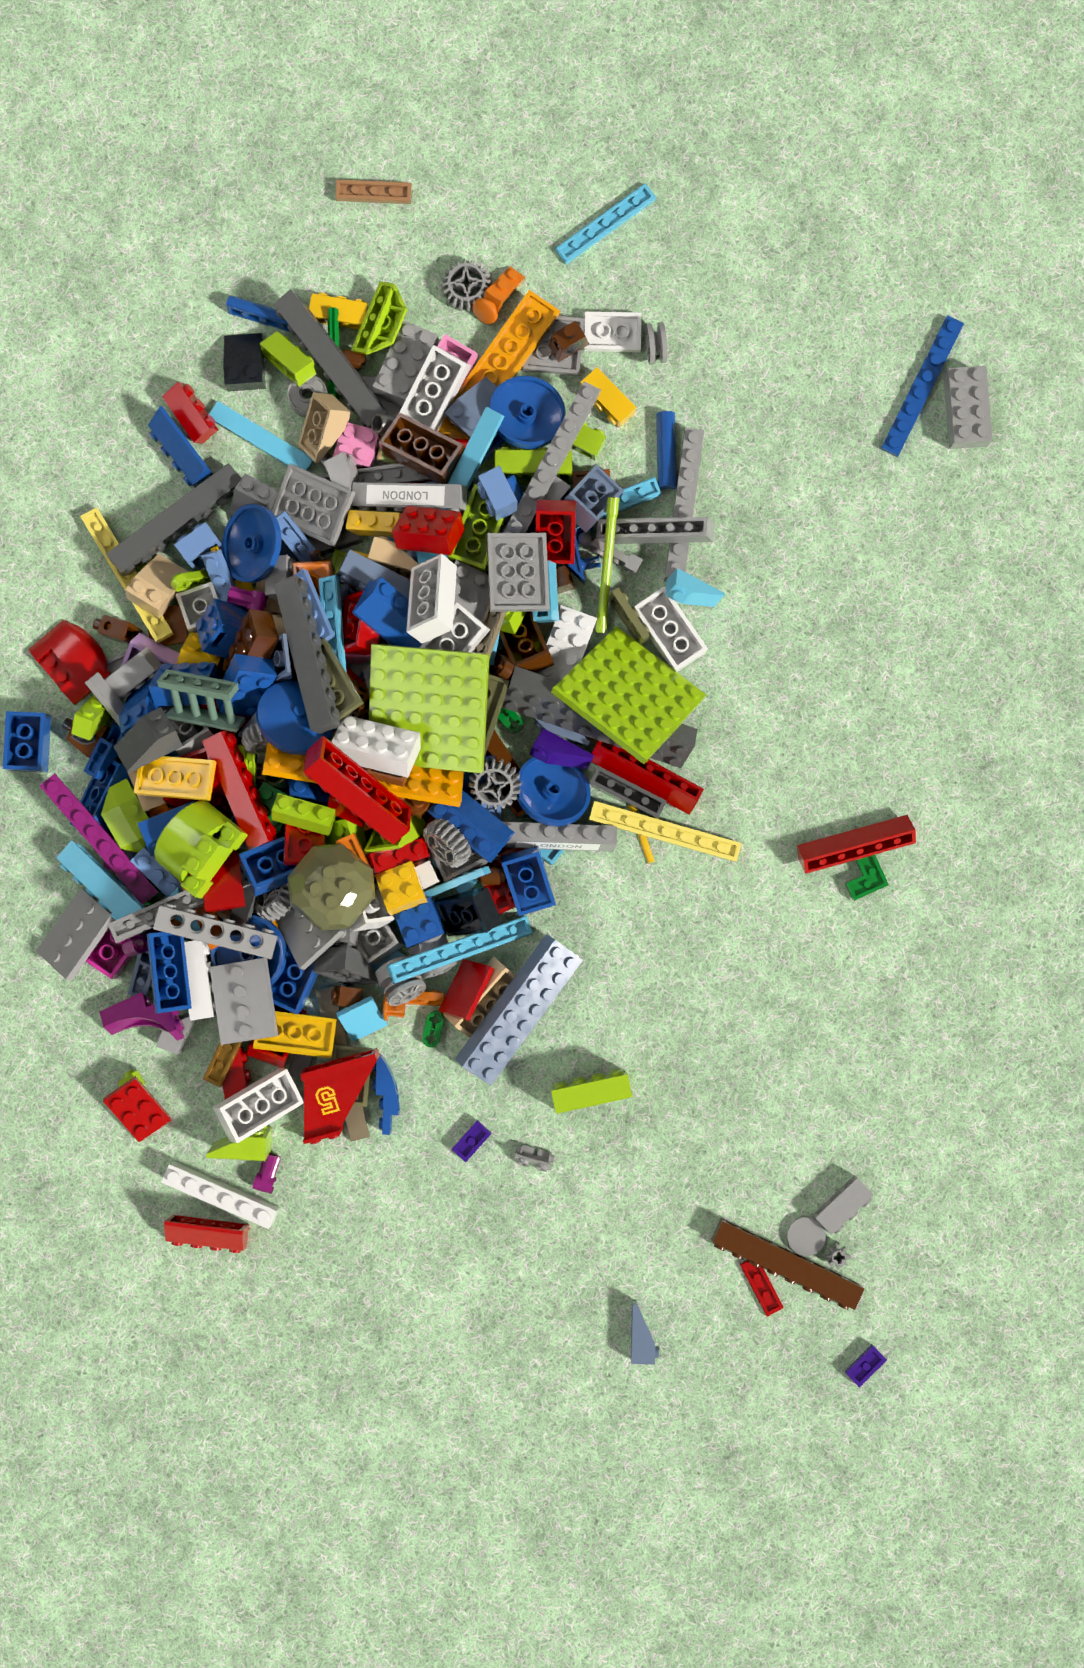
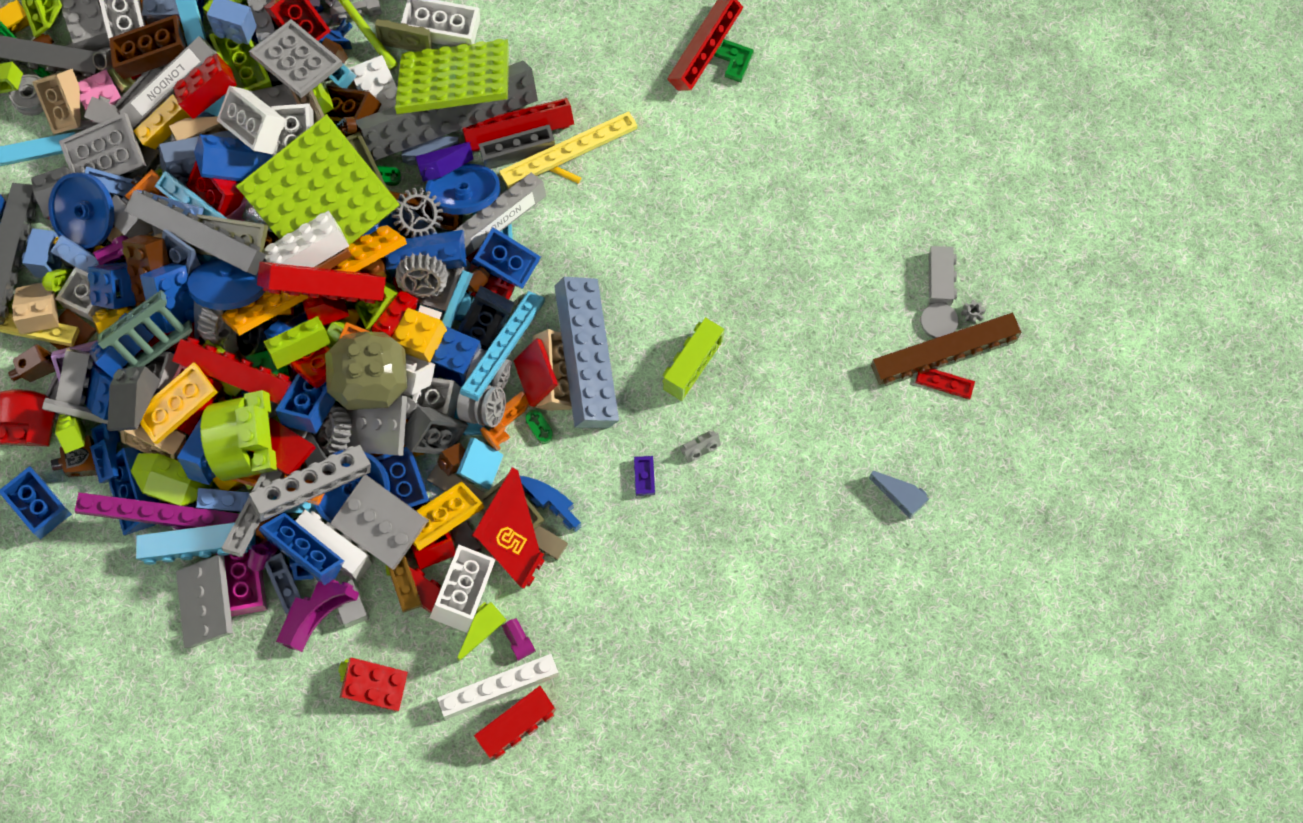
camera: 45 degrees left, 15 degrees down
(865, 1365) = (1069, 365): dark purple plate -> none

